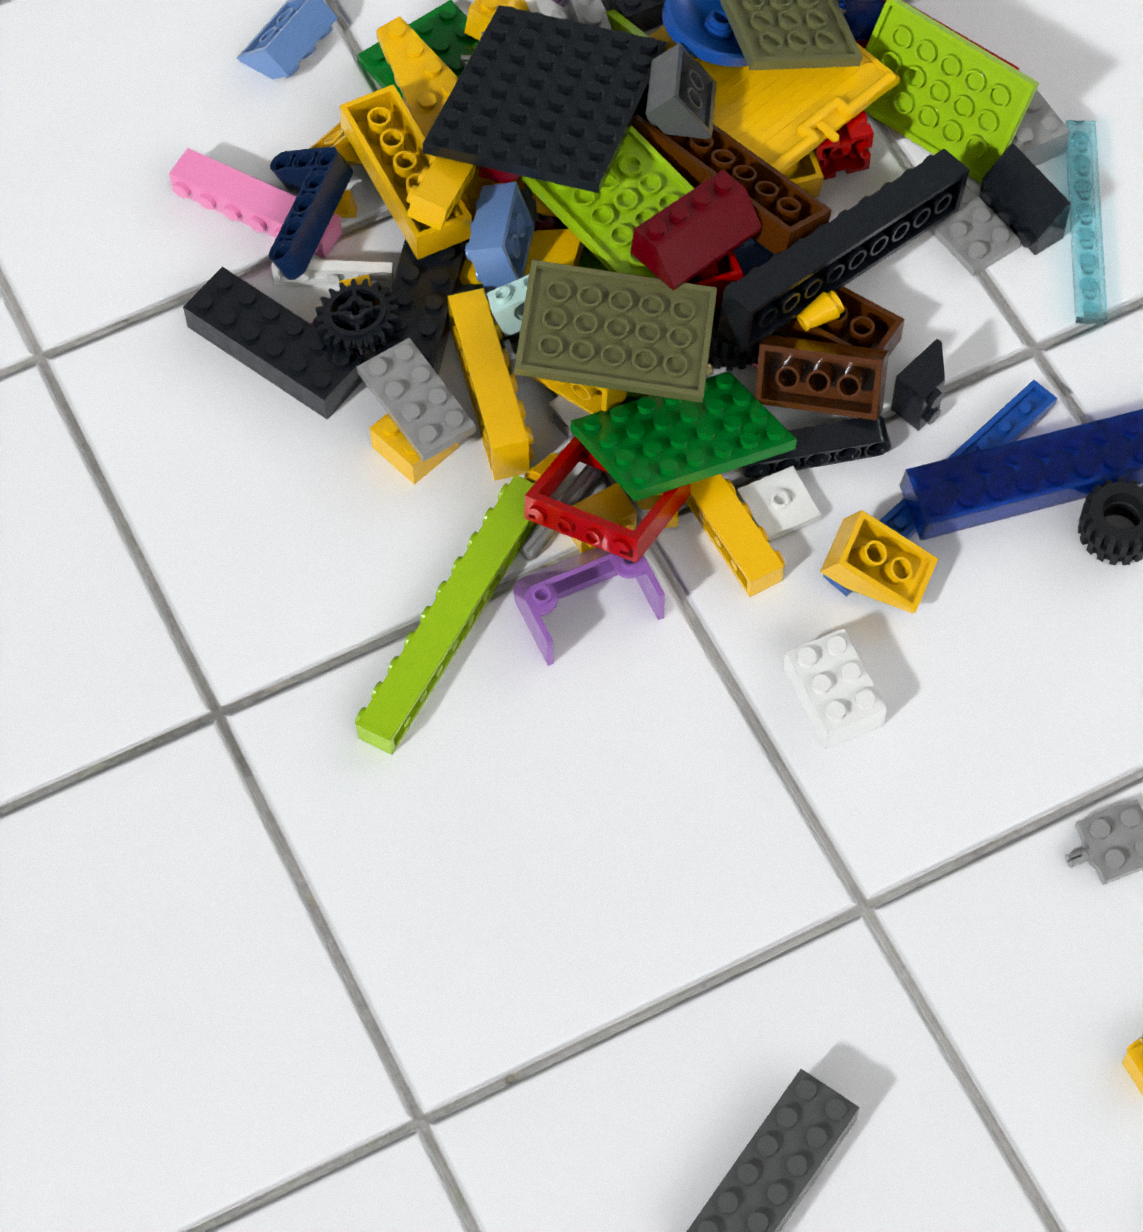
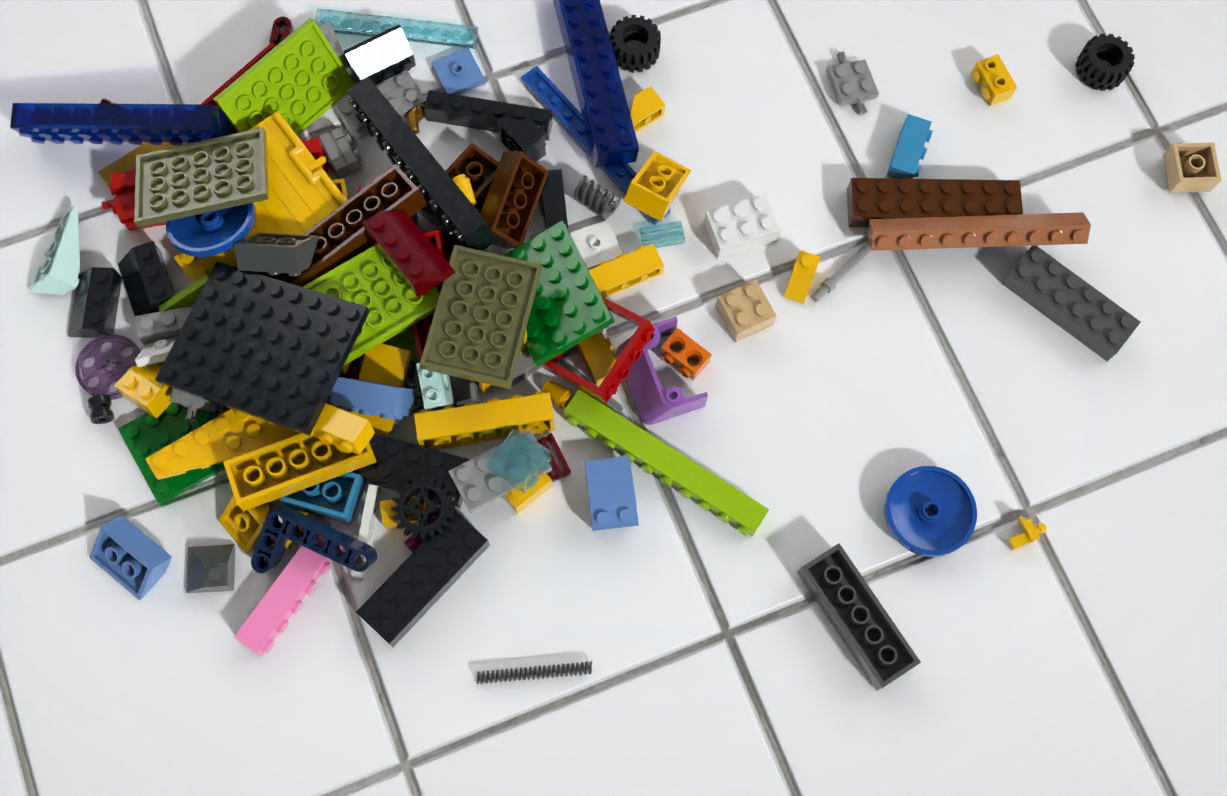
camera: 90 degrees left, 10 degrees up
(143, 424) = (532, 673): none -> dark grey piece
(241, 867) = (858, 617): none -> dark grey brick
(279, 123) = (210, 568): none -> dark grey slope
(370, 227) = (329, 499): none -> dark azure brick
(382, 1113) = (1029, 534): none -> yellow piece
(399, 544) = (611, 493): none -> medium blue slope
(403, 964) = (930, 511): none -> blue dish
(424, 410) = (520, 461): none -> clear light blue plate
(450, 472) = (543, 441): none -> dark red tile
(624, 629) = (689, 350): none -> orange brick
(696, 701) = (745, 310): none -> tan brick
(760, 821) = (830, 283): none -> light grey bar
(764, 777) = (801, 276): none -> yellow slope
(815, 610) = (662, 227): none -> clear light blue tile
(851, 489) = (595, 199): none -> flat silver piece
(868, 1024) = (978, 231): none -> nougat brick
(869, 174) = (339, 152): none -> light grey brick
(916, 967) = (929, 198): none -> reddish brown brick
(946, 260) = (415, 117): none -> pearl gold arm
(962, 347) = (481, 113): none -> black brick
(1009, 545) = (646, 108): none -> yellow slope
(1010, 927) = (910, 148): none -> dark azure brick
(1031, 305) = (458, 72): none -> medium blue plate
(1050, 85) = (276, 34): none -> dark red beam

